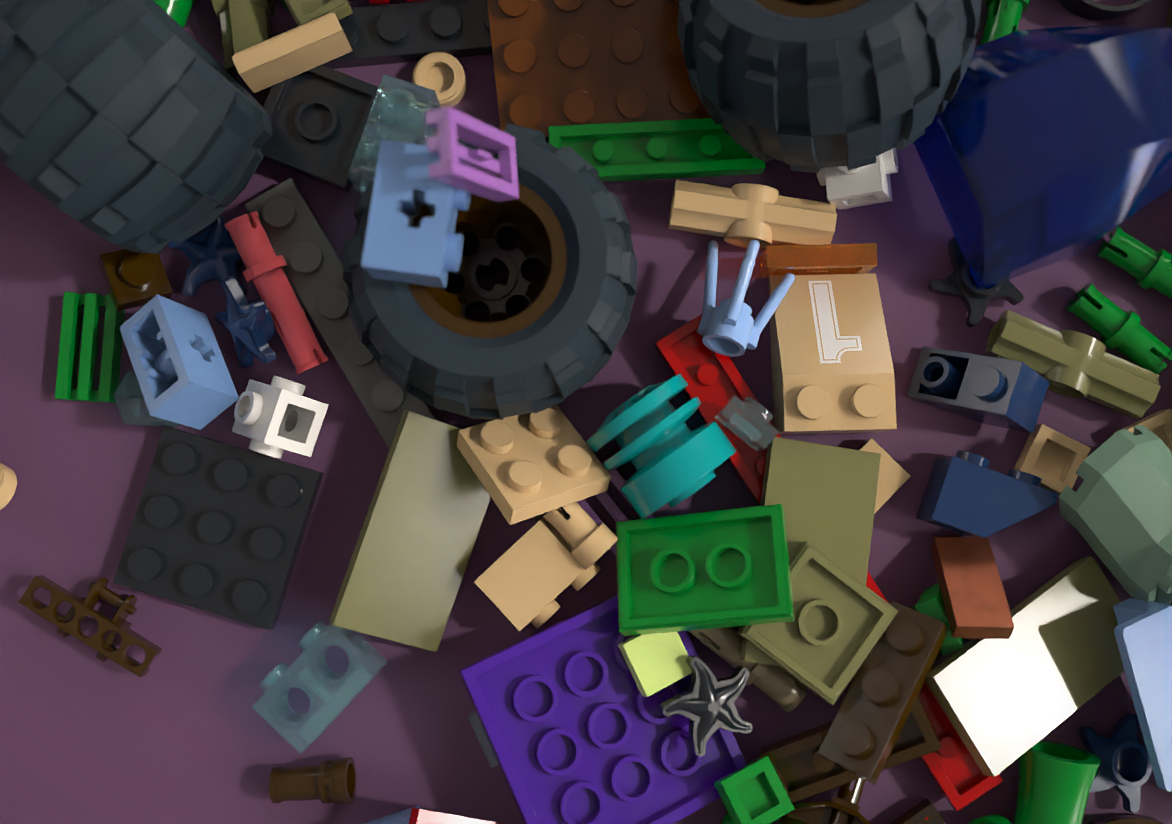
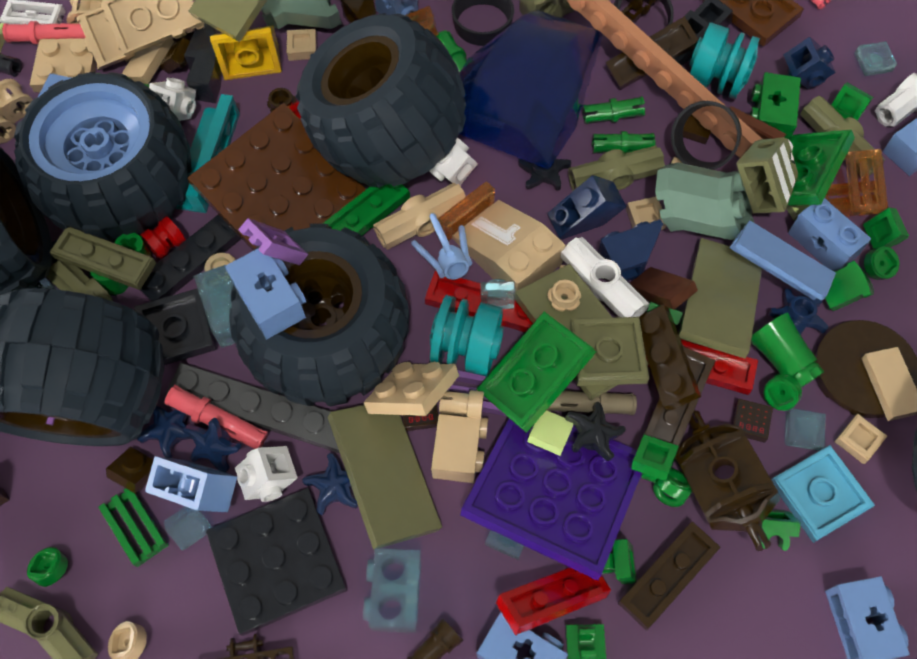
camera: 35 degrees left, 20 degrees down
(292, 52) = (145, 290): tan tile -> none
(349, 492) = (333, 486): none -> dark blue animal
(842, 499) = (564, 288): none -> tan plate
(902, 553) = (592, 266): none -> white piece

